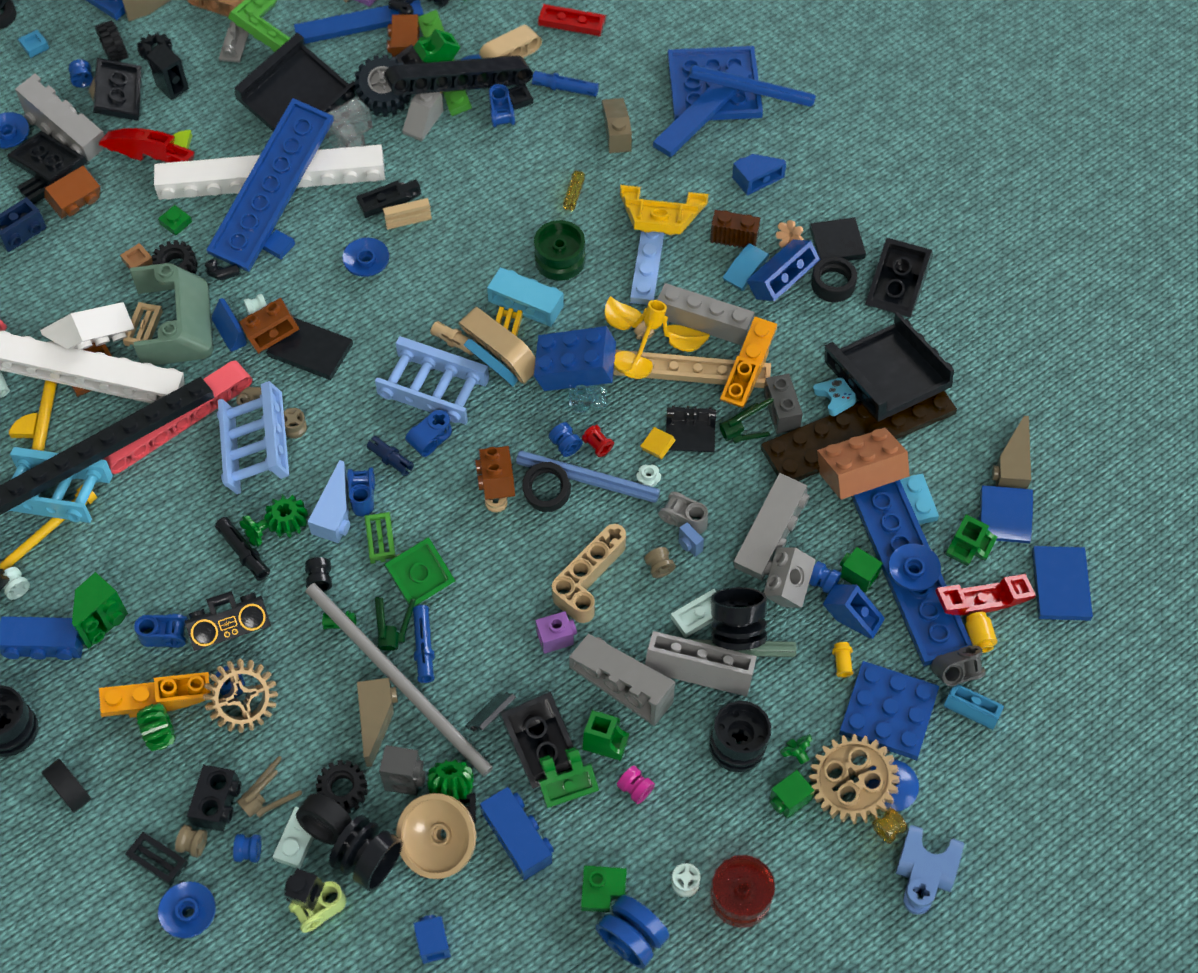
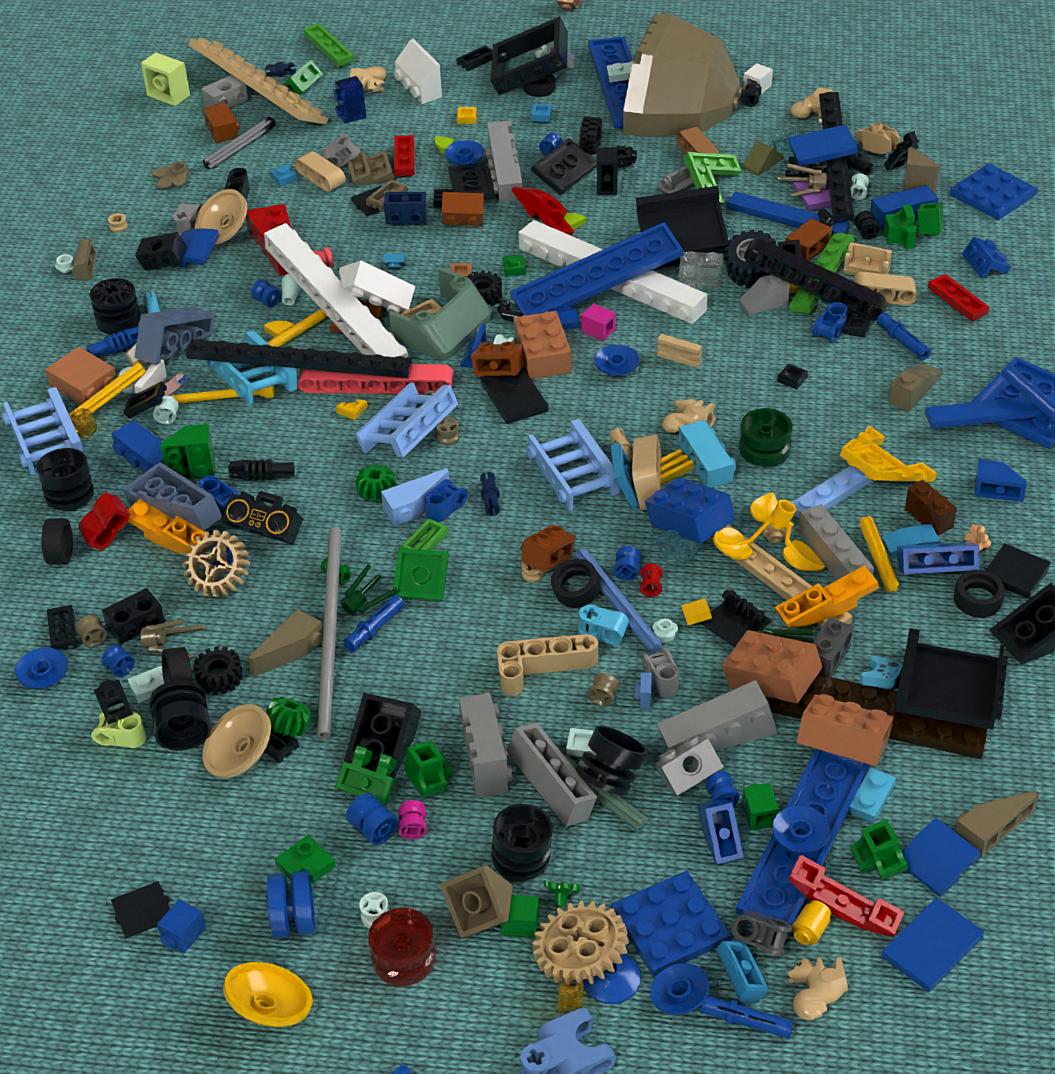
camera: 45 degrees right, 15 degrees down
(62, 285) = (394, 261): none -> dark azure plate
(87, 733) = (104, 521): none -> red brick
(129, 662) = (174, 496): none -> sand blue wedge
(156, 727) = (147, 547): green gear -> none
(168, 576) = (260, 469): none -> black hinge
(182, 459) = (353, 409): none -> yellow tile
(247, 555) = (324, 491): black pin -> none
(253, 529) = (345, 476): green plant -> none
(288, 277) = (543, 344): none -> nougat brick
(311, 230) = (598, 322): none -> dark pink brick
(318, 573) = (355, 531): black wheel -> none
(387, 196) = (679, 330): black hinge -> none
(402, 770) = (260, 680): dark grey brick -> none
(430, 433) = (531, 497): blue piece -> none
(431, 939) = (162, 806): blue brick -> none
(437, 47) = (817, 251): green brick -> none
(473, 28) = (867, 259): none -> tan hinge
(481, 271) = (688, 412): none -> tan animal
(490, 711) = (356, 694): black piece -> none
(516, 177) = (792, 376): none -> black tile
(517, 832) = (294, 786): blue brick -> none
(555, 632) = (471, 678): medium lavender brick -> none
(573, 190) = (828, 409): clear yellow axle -> none
(604, 506) = (604, 624): none -> medium azure piece
(608, 810) = (372, 819): none -> blue wheel
(732, 294) = (879, 554): none -> yellow axle
(762, 810) = (477, 900): none -> dark tan slope
(765, 449) = (778, 664): none -> nougat brick
(843, 659) = (671, 859): yellow pin -> none
(951, 742) = (678, 980): none -> blue dish
(999, 741) = (782, 1026): none -> blue pin
(1031, 670) = (824, 984): none -> tan animal

